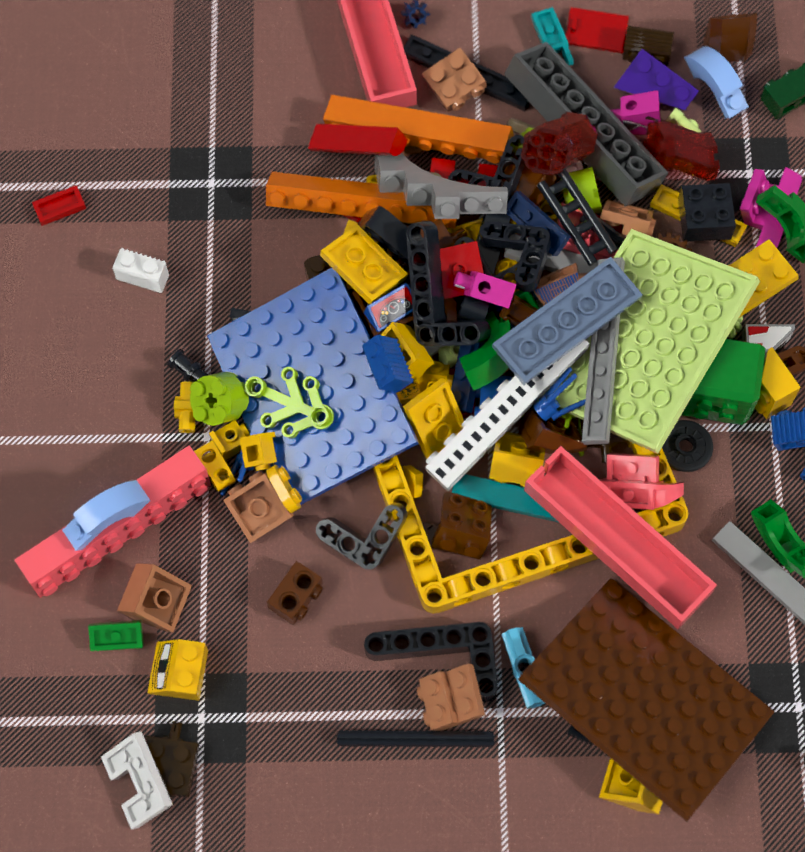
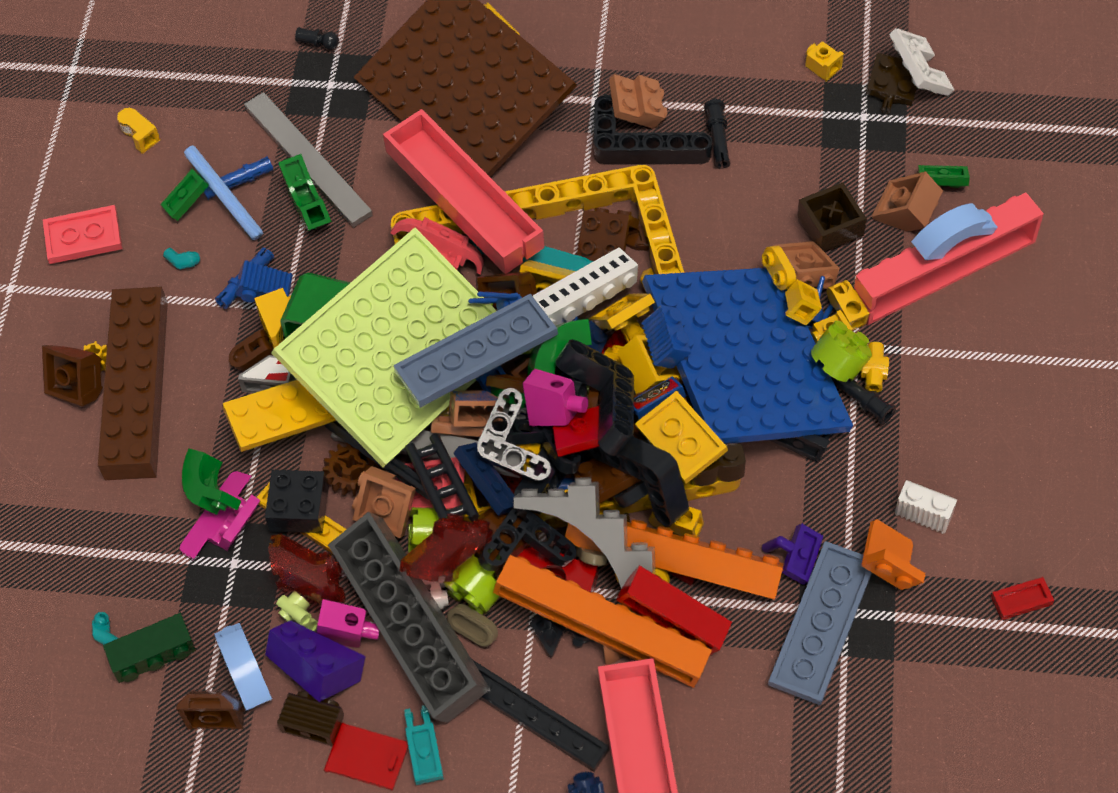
camera: 170 degrees left, 10 degrees down
(175, 215) = (889, 556): none -> orange bracket
(178, 669) = (884, 145): yellow slope -> none
(230, 166) = (821, 624): none -> sand blue plate
(233, 564) = (831, 217): none -> dark brown brick
(239, 774) = (823, 60): none -> yellow brick
(251, 219) = (800, 552): none -> dark purple plate
(290, 591) = (777, 191): reddish brown brick -> none
(293, 404) = (741, 314): lime plant -> none
(361, 681) = (716, 124): none -> black pin
(362, 545) = (698, 221): black beam -> none
(415, 738) = (684, 83): black axle -> none
(455, 80) = (549, 693): nougat plate -> none
(520, 652) = (569, 127): medium azure piece -> none
(601, 379) = (447, 322): light grey tile -> none

